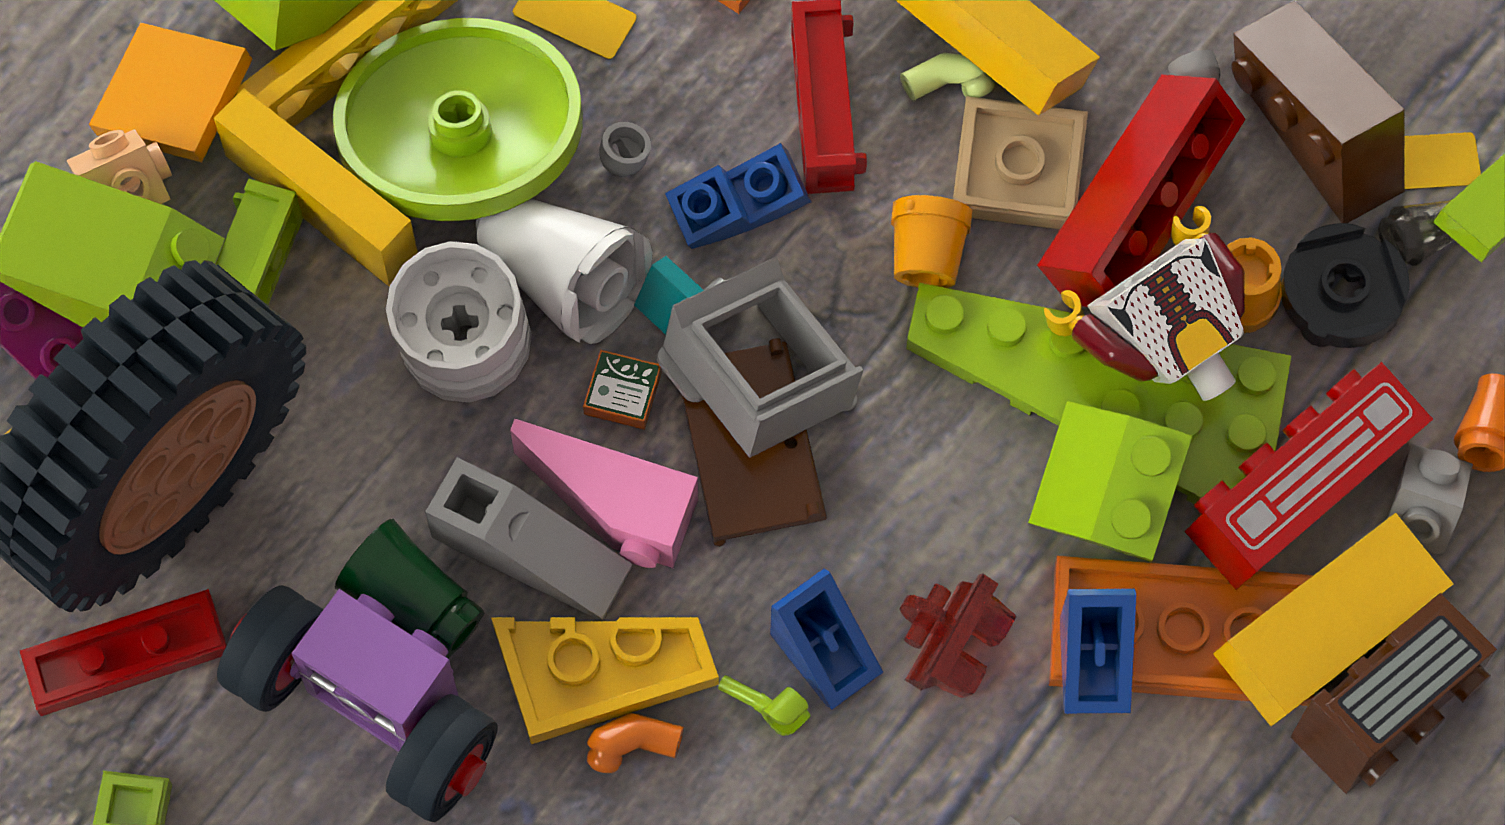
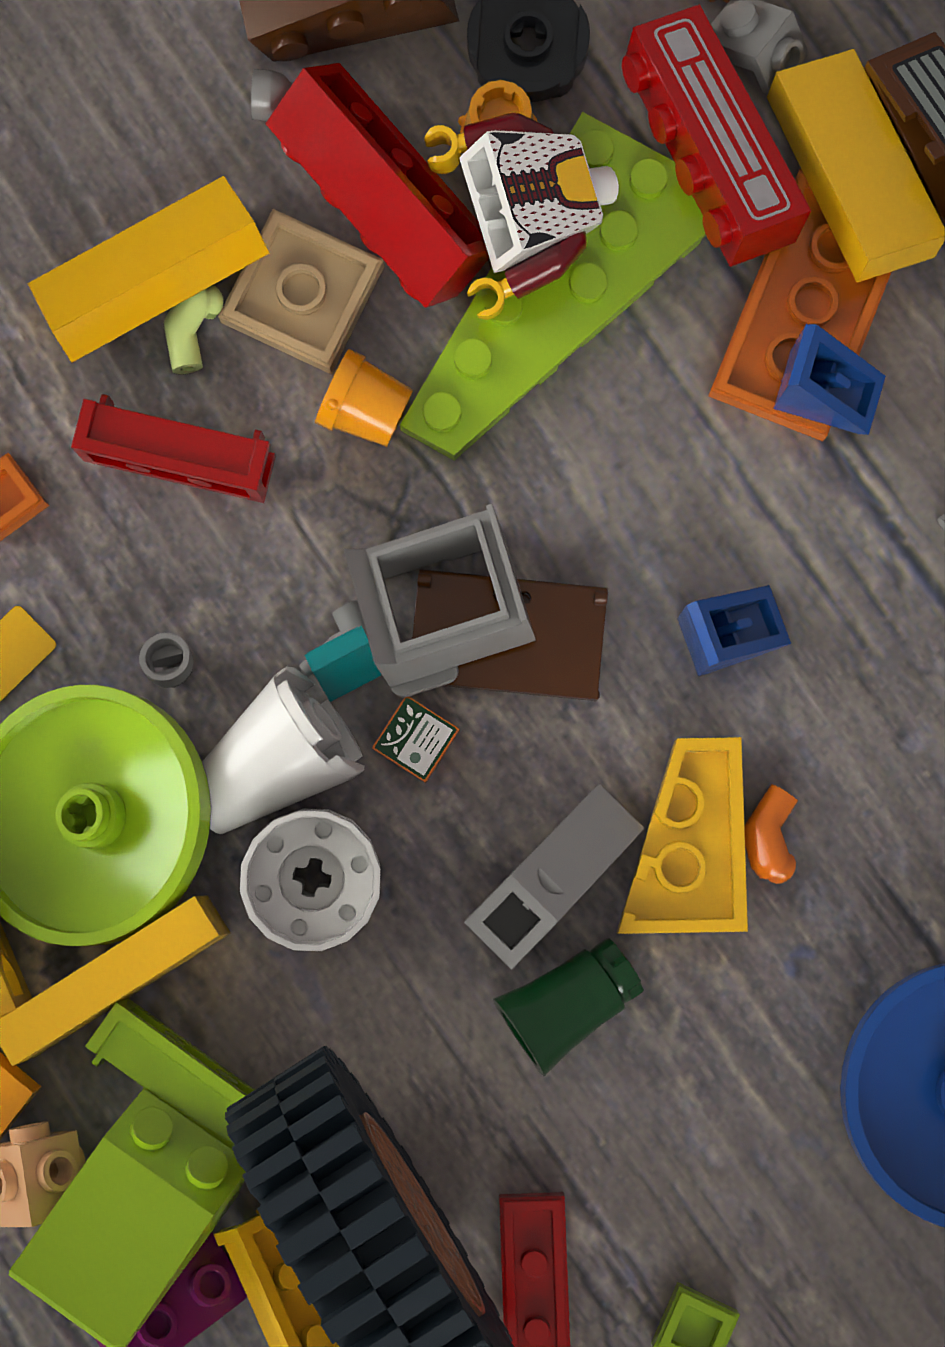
camera: 70 degrees left, 15 degrees up
(373, 676) = (658, 1067): brick -> none
(622, 498) = (536, 772): bright pink slope -> none
(736, 201) = (251, 567): blue slope -> none
(783, 714) = (784, 687): lime hand -> none
(968, 612) = (759, 510): clear red hips -> none
(1110, 480) = (666, 312): lime slope -> none

